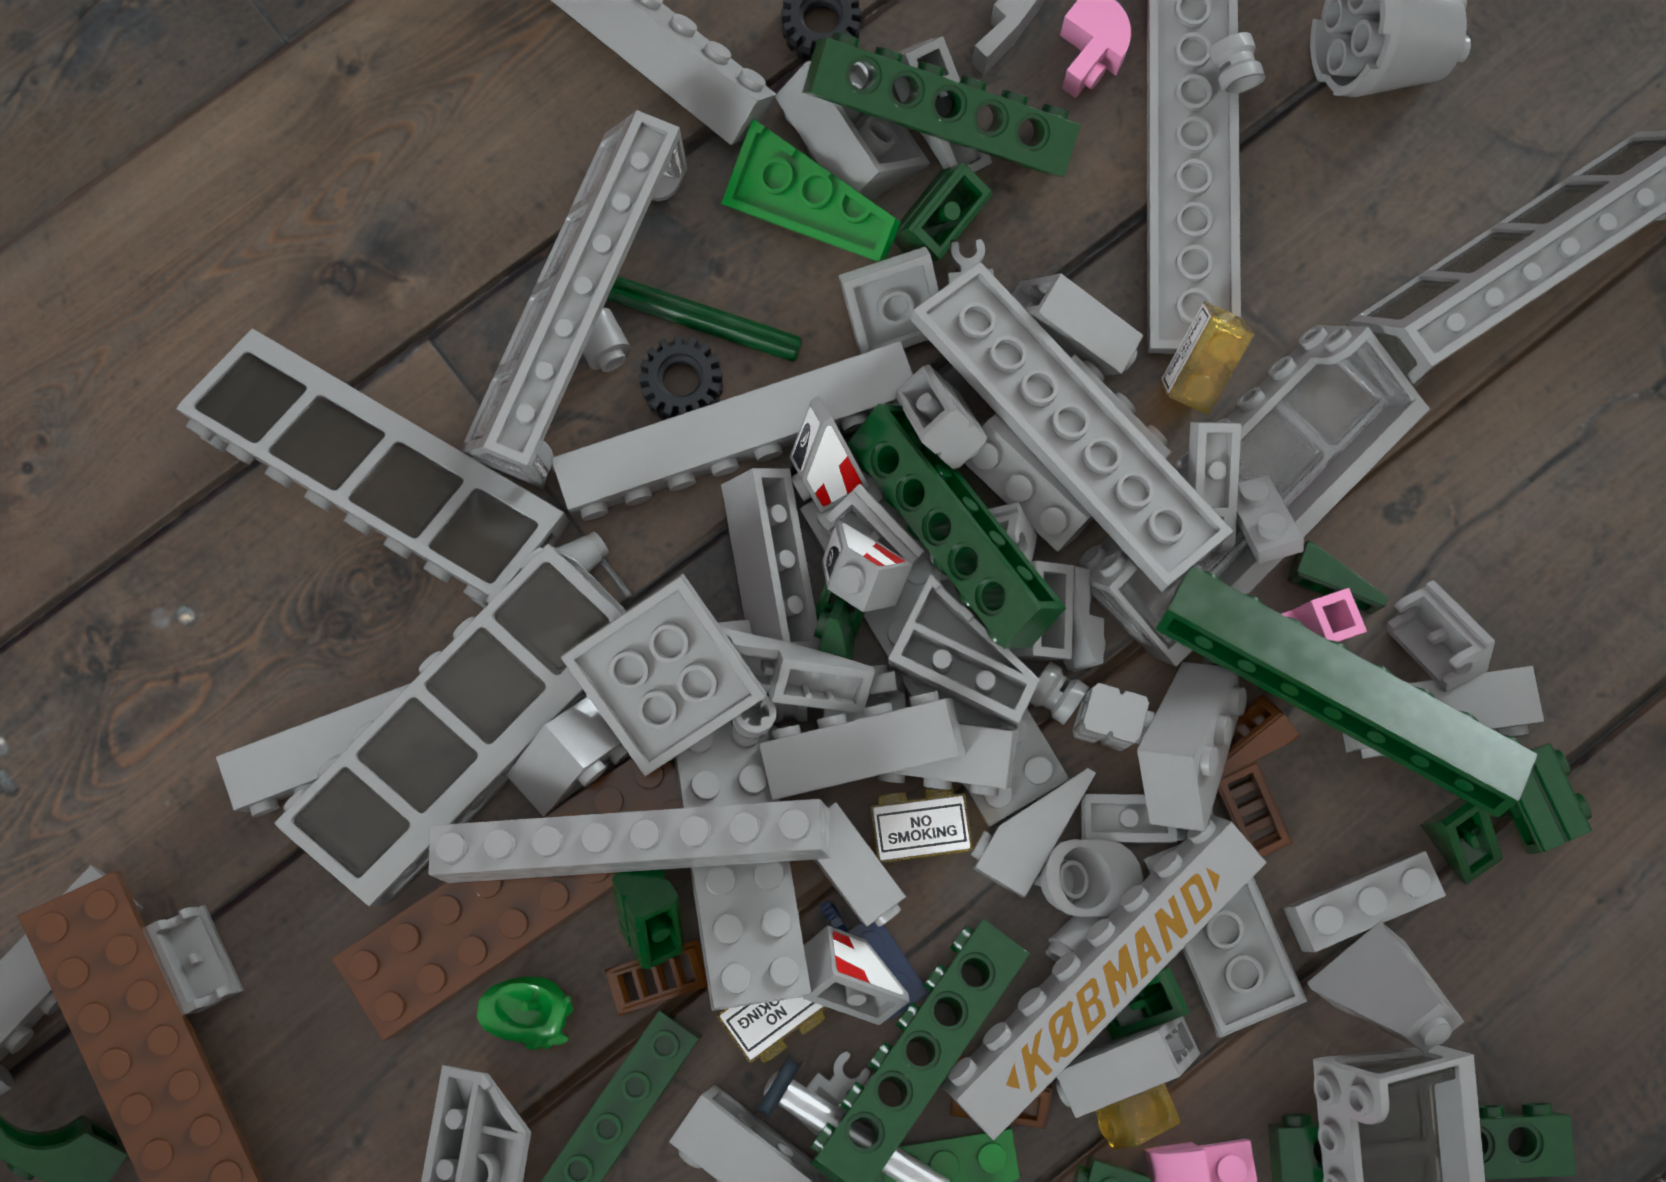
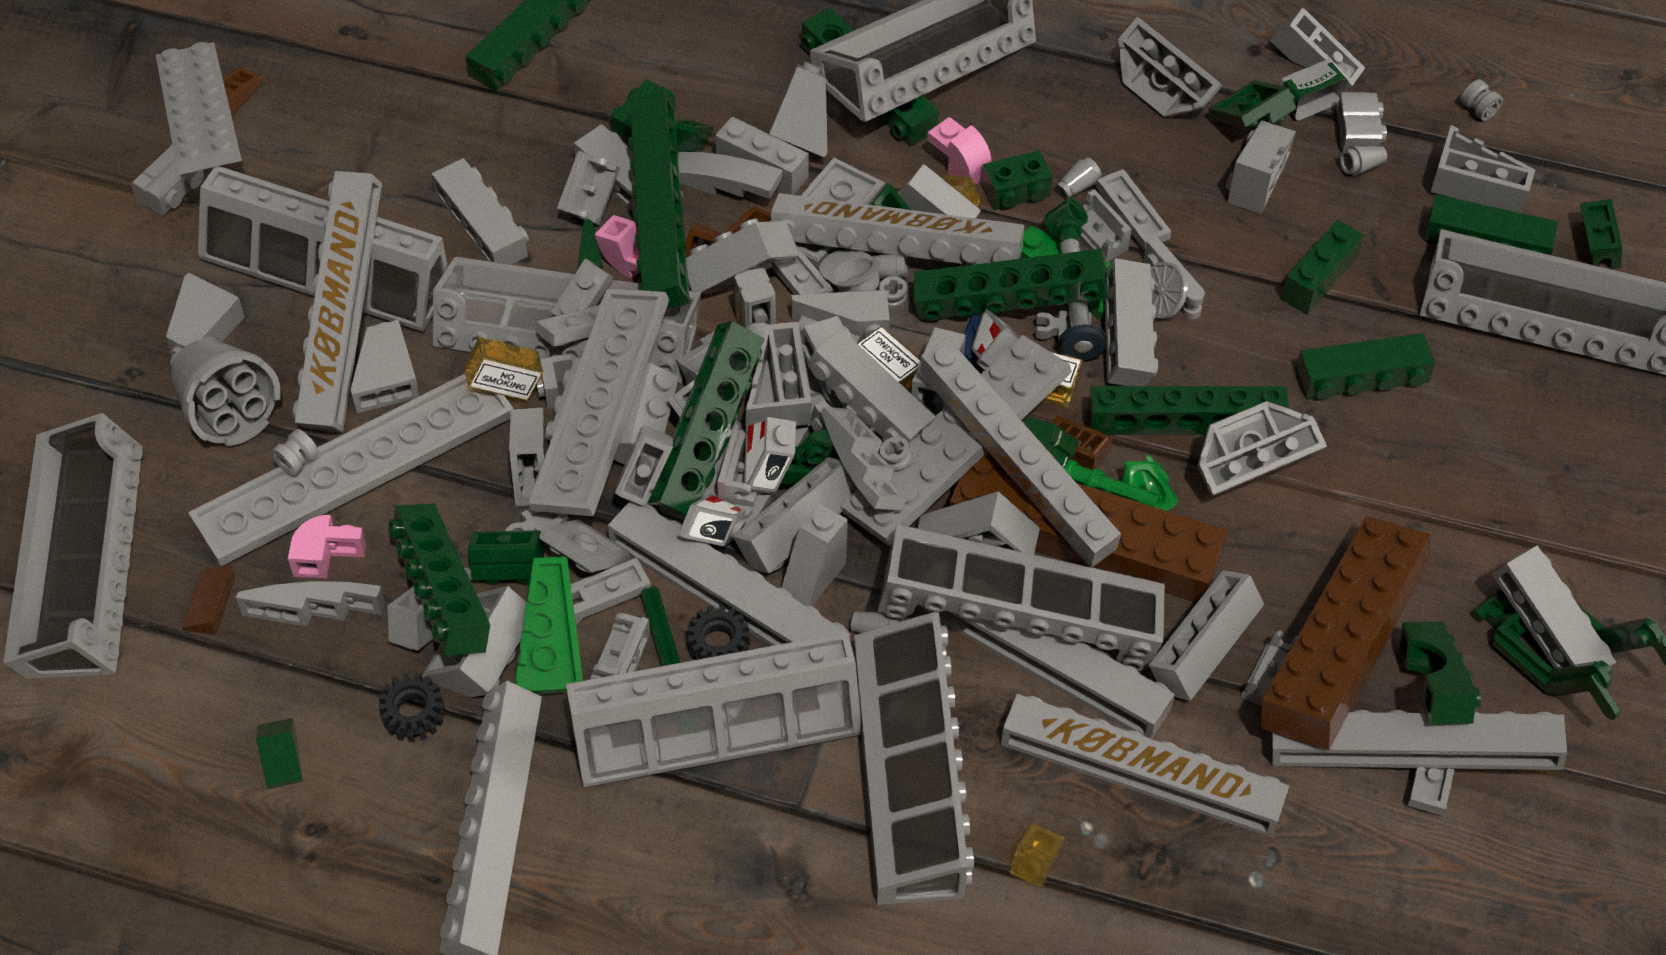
camera: 125 degrees left, 25 degrees down
(184, 532) = (1036, 854): none -> clear yellow bracket
(191, 722) = (1145, 764): none -> light grey brick
(283, 914) = (1207, 634): none -> light grey brick
(574, 949) = (1097, 479): none -> green pin
(663, 675) = (912, 489): light grey plate -> none
(695, 541) = (816, 555): none -> light grey slope
(736, 267) = (623, 646): none -> light grey hinge
(826, 313) = (608, 588): none -> light grey plate
(1050, 918) = (897, 284): none -> light grey bush
(1168, 415) = (553, 371): none -> light grey bracket
(1314, 243) = (383, 369): none -> light grey slope
(1363, 832) = (728, 173): none -> light grey slope
(1424, 206) = (337, 302): none -> light grey brick
(1492, 489) = (480, 213): none -> light grey brick
(1524, 78) = (201, 313): none -> light grey slope

